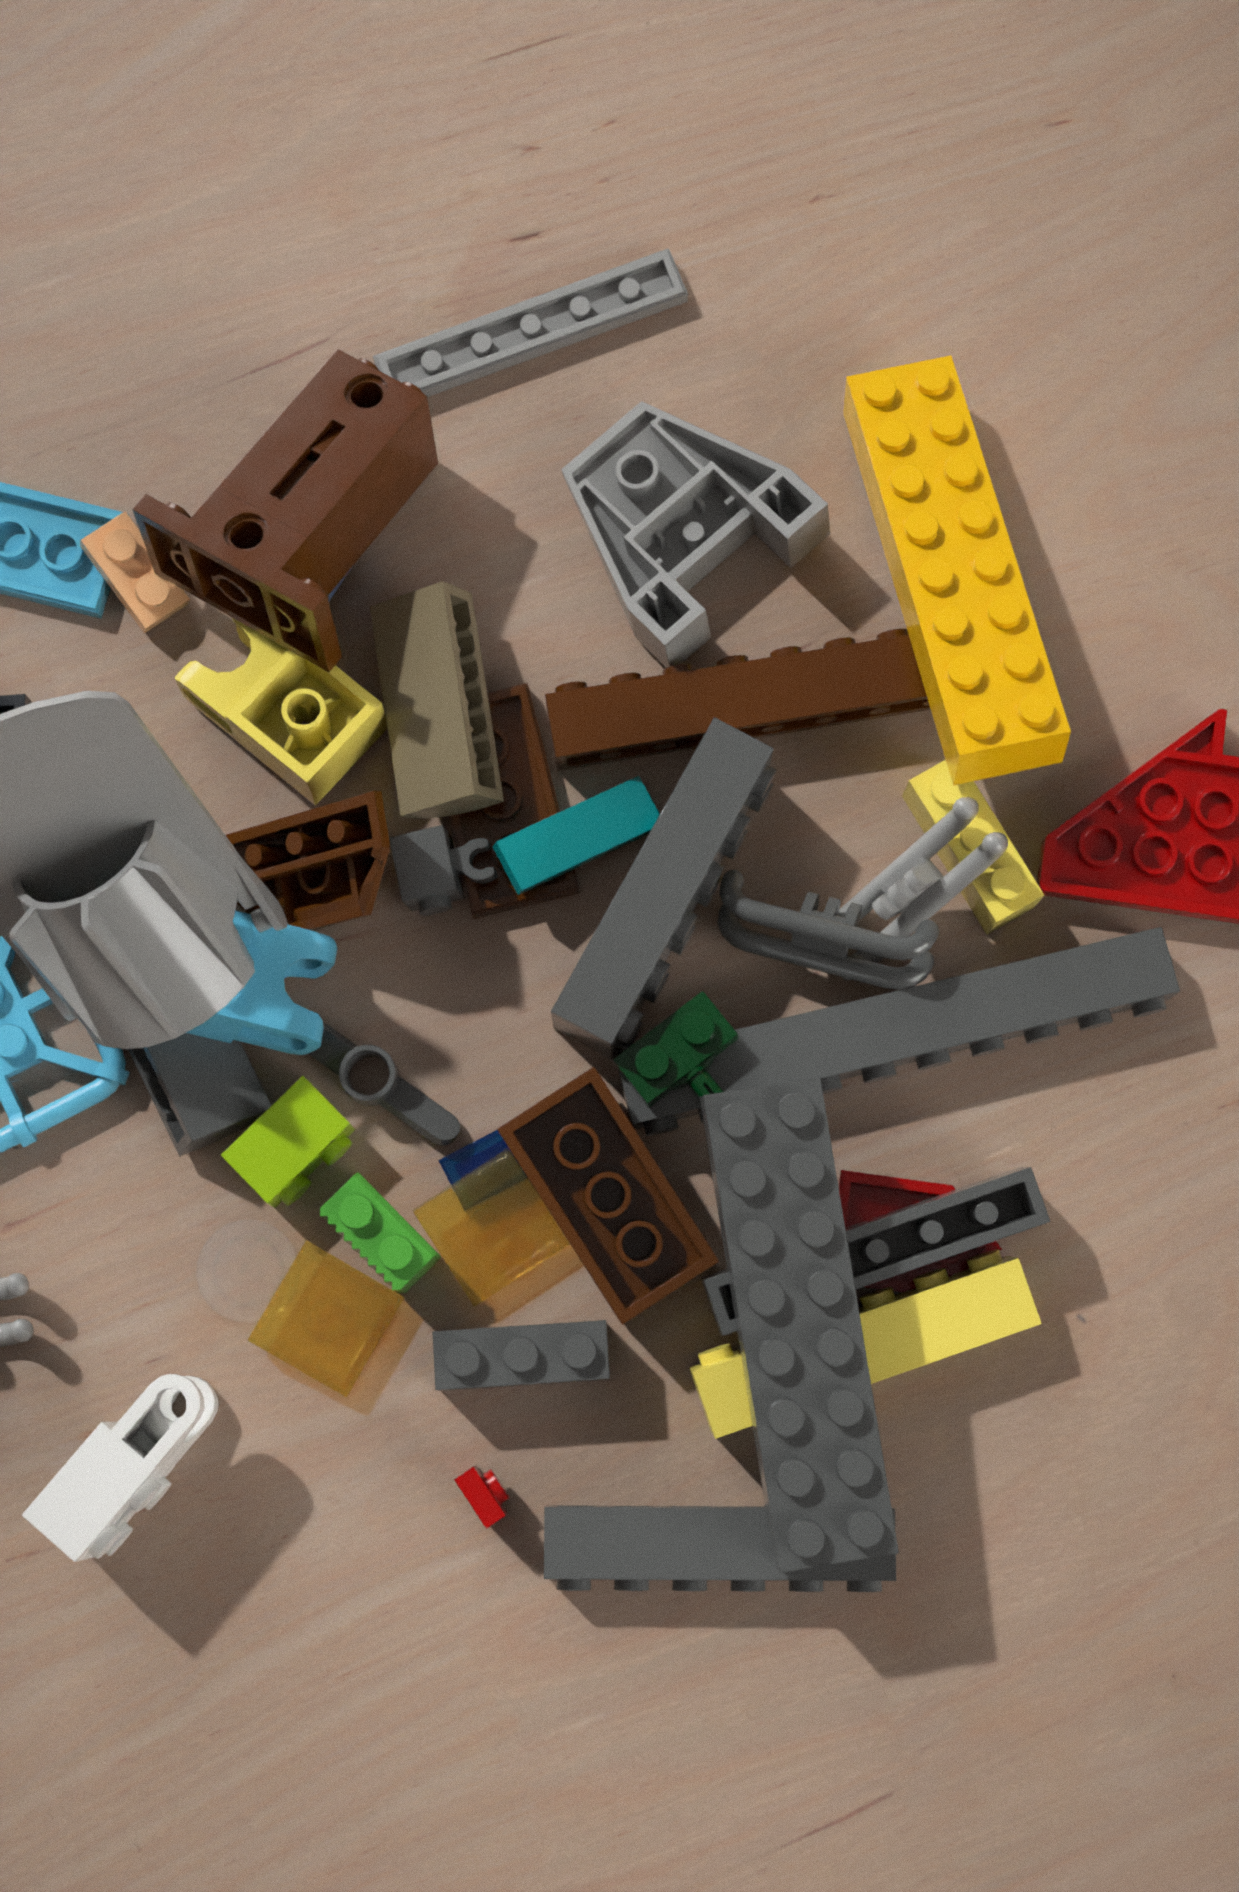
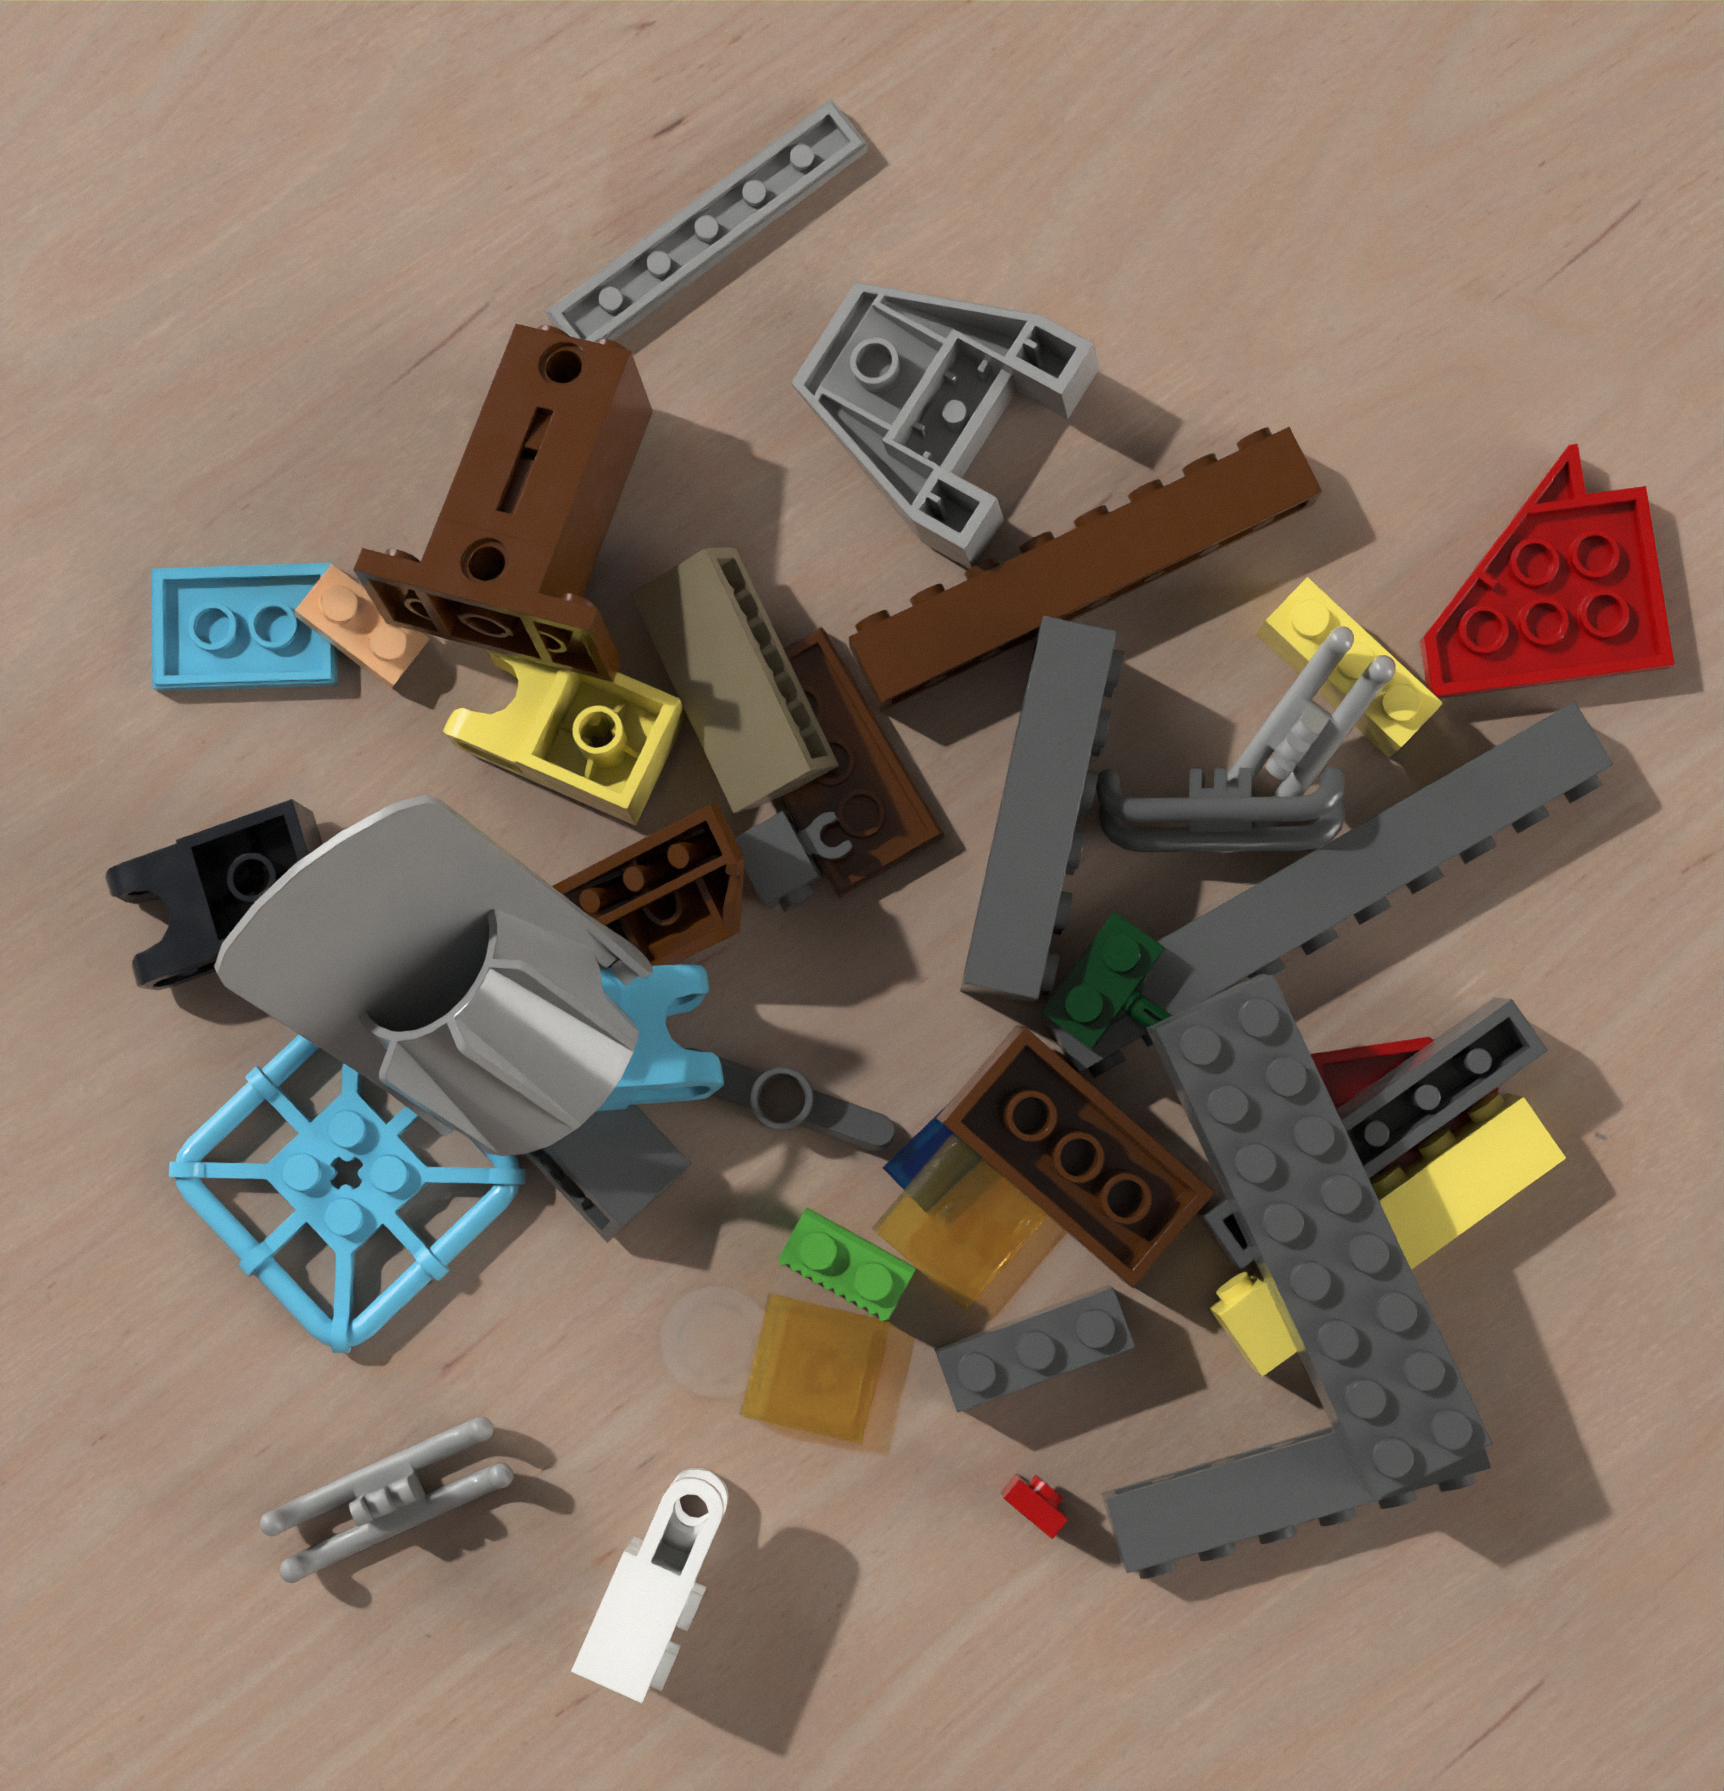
camera: 15 degrees left, 5 degrees up
(290, 1144) = (720, 1197): lime brick -> none
(577, 835) = (927, 778): teal tile -> none
(954, 572) = (1249, 377): yellow brick -> none

